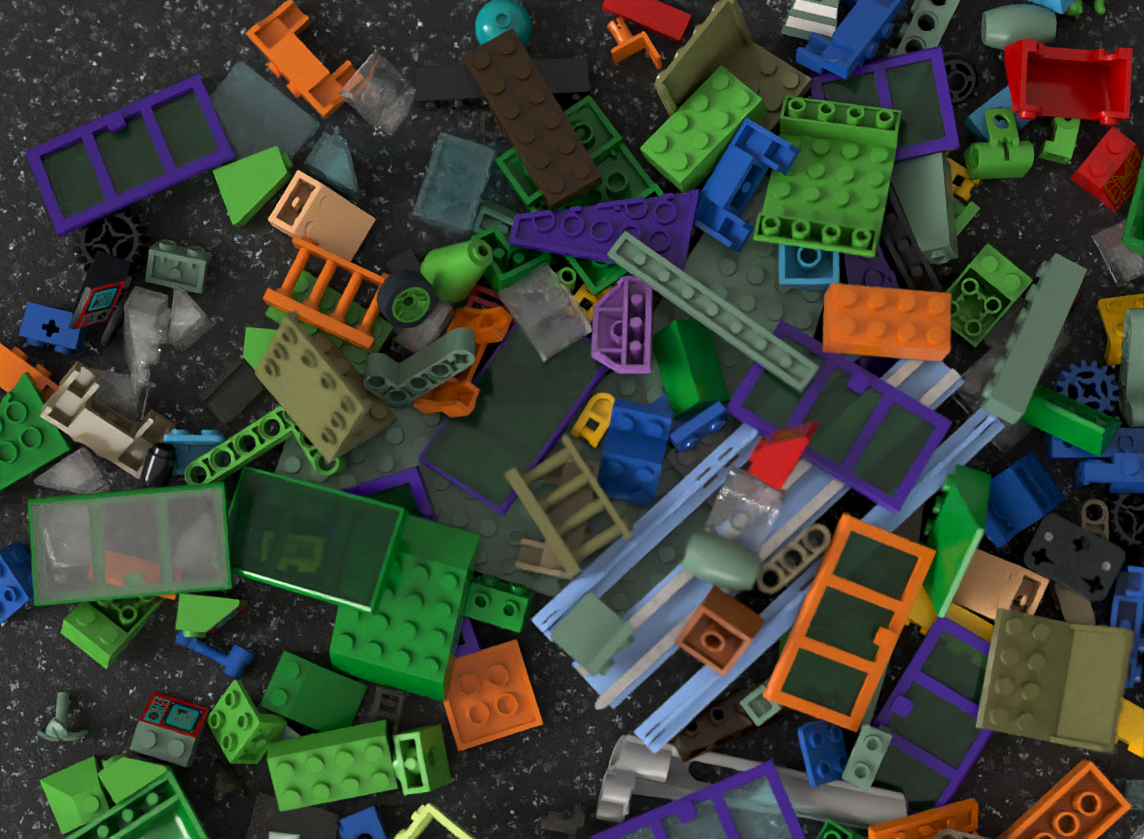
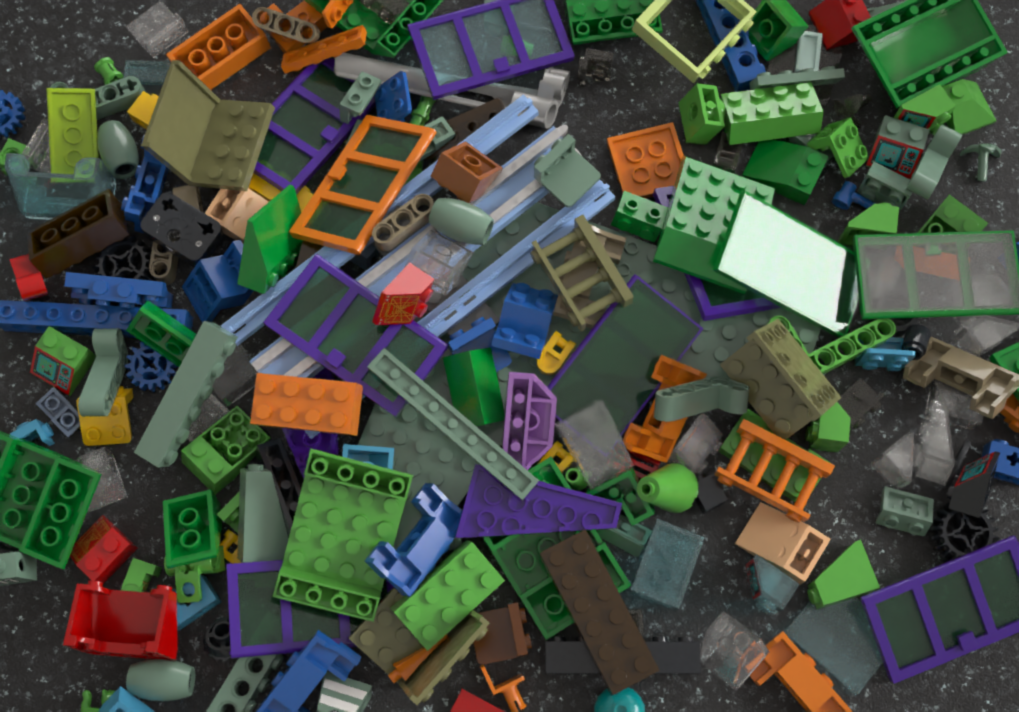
camera: 175 degrees left, 10 degrees down
(129, 697) = (933, 162): none -> sand green beam
(185, 672) = (885, 186): none -> sand green slope
(310, 814) = (825, 76): none -> sand green plate
(406, 298) = (711, 458): black wheel -> none
(636, 101) = (504, 635): none -> reddish brown bracket
(743, 55) = (407, 665): none -> orange piece
(788, 743) = (421, 113): none -> bright green pin
(1006, 188) = (191, 528): none -> green slope

